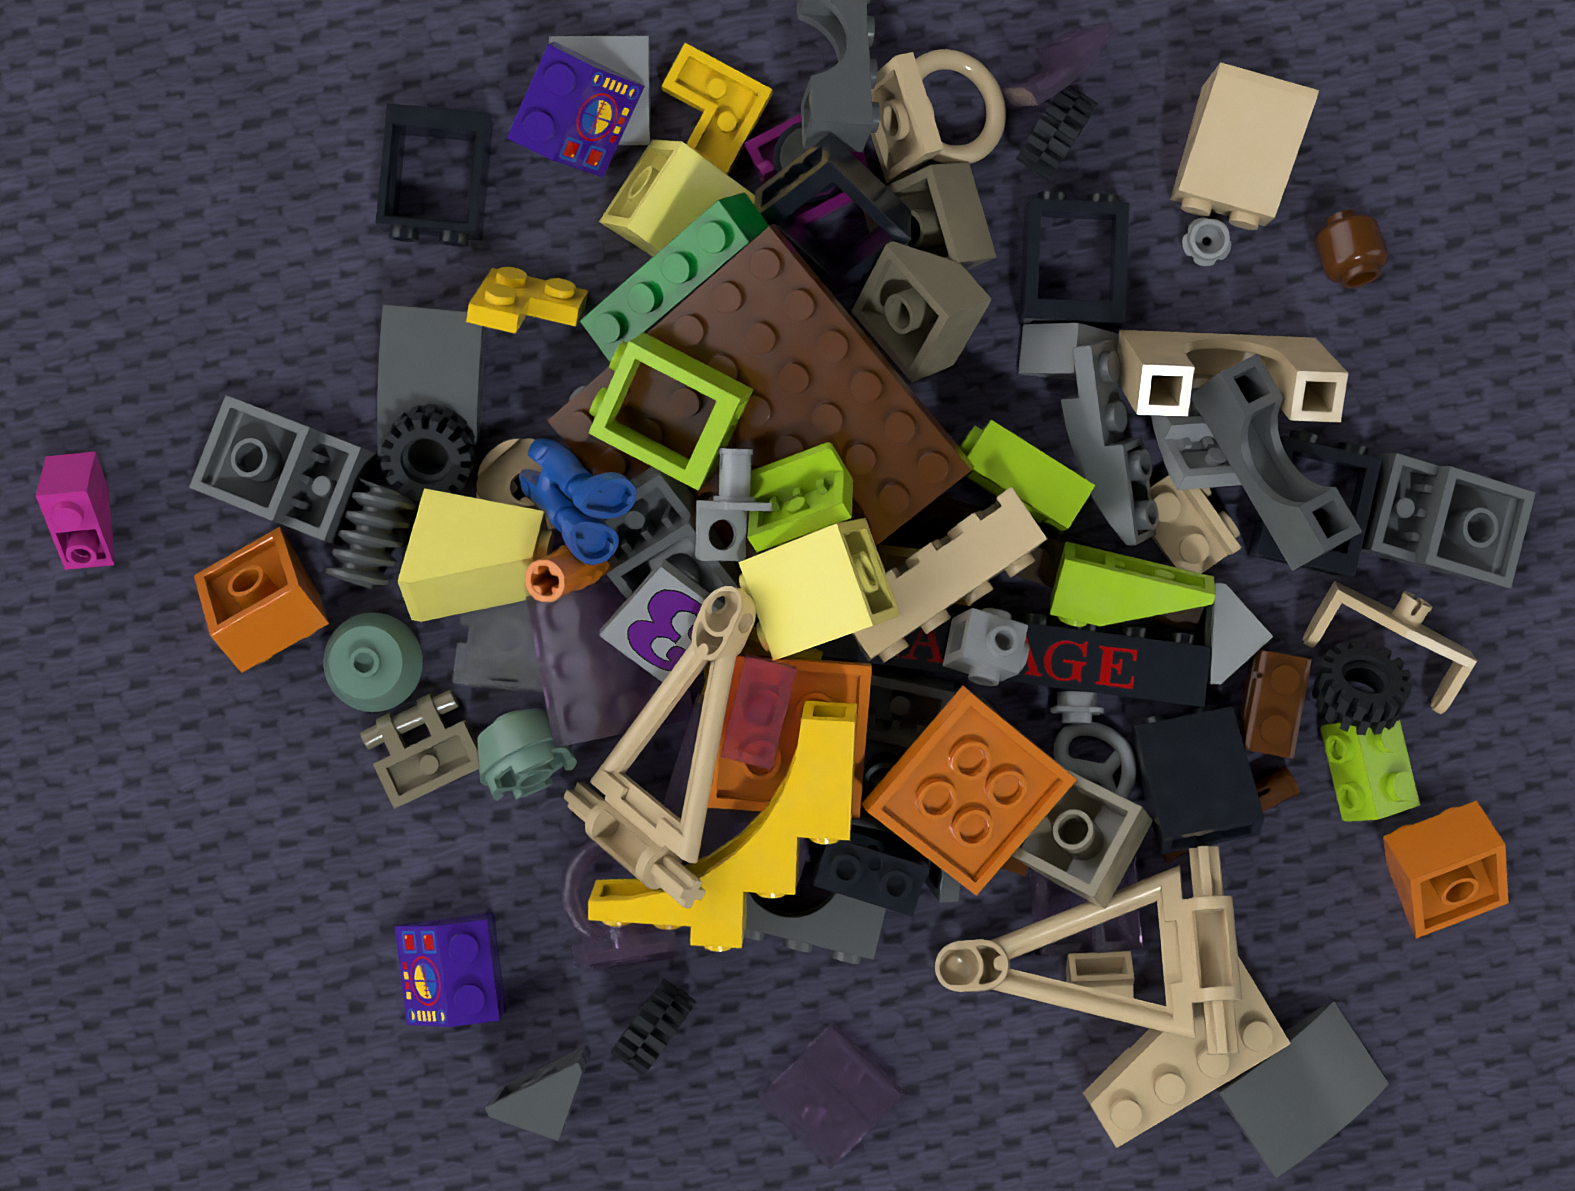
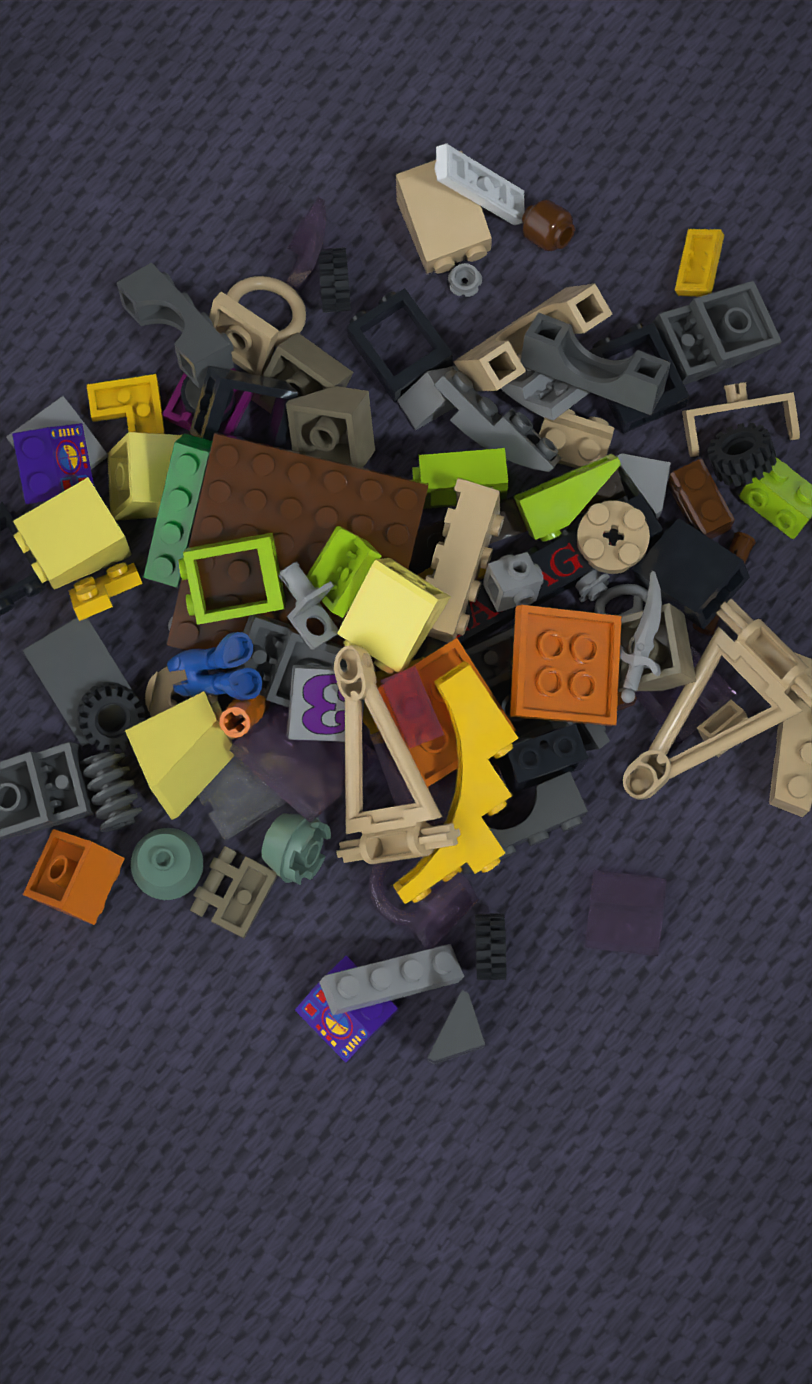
camera: 30 degrees left, 10 degrees down
(515, 983) = (391, 979): none -> light grey plate
(531, 212) = (71, 536): none -> light yellow slope
(1079, 828) = (644, 643): none -> light grey piece
(1170, 675) = (629, 523): none -> tan plate
(1308, 145) = (479, 184): none -> white plate
(1490, 424) = (699, 262): none -> yellow plate

